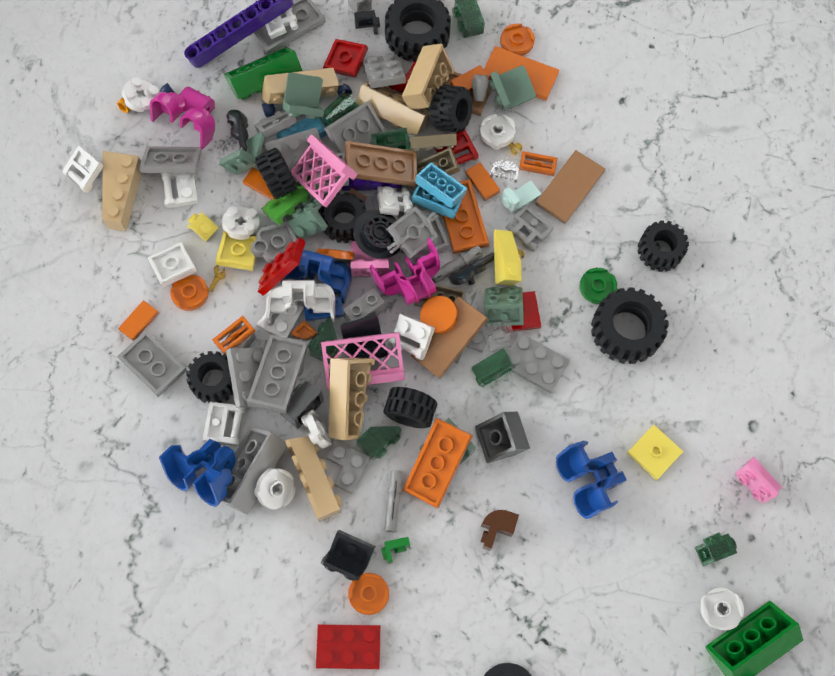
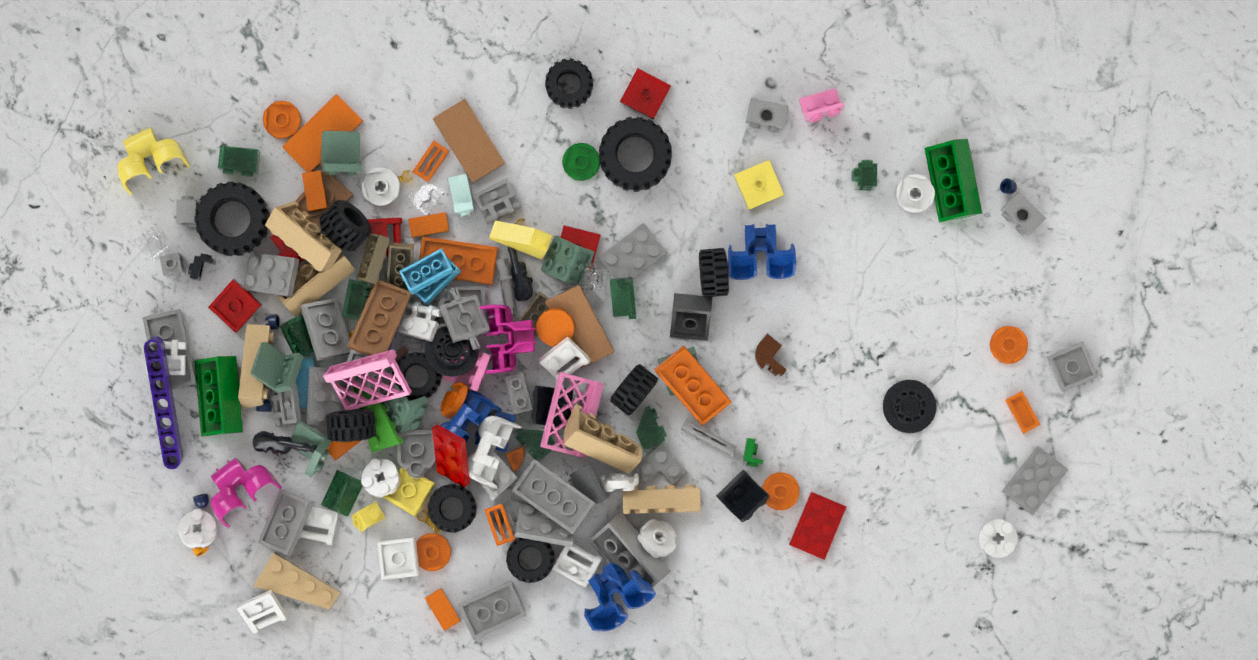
camera: 65 degrees left, 15 degrees up
(214, 198) = (342, 493): none -> clear green panel
(231, 277) = (439, 496): none -> black tyre
(479, 86) = (328, 185): light grey cone -> none
(553, 437) = (713, 272): none -> black tyre
(686, 316) = (645, 93): none -> red plate
(725, 420) = (777, 111): none -> light grey brick

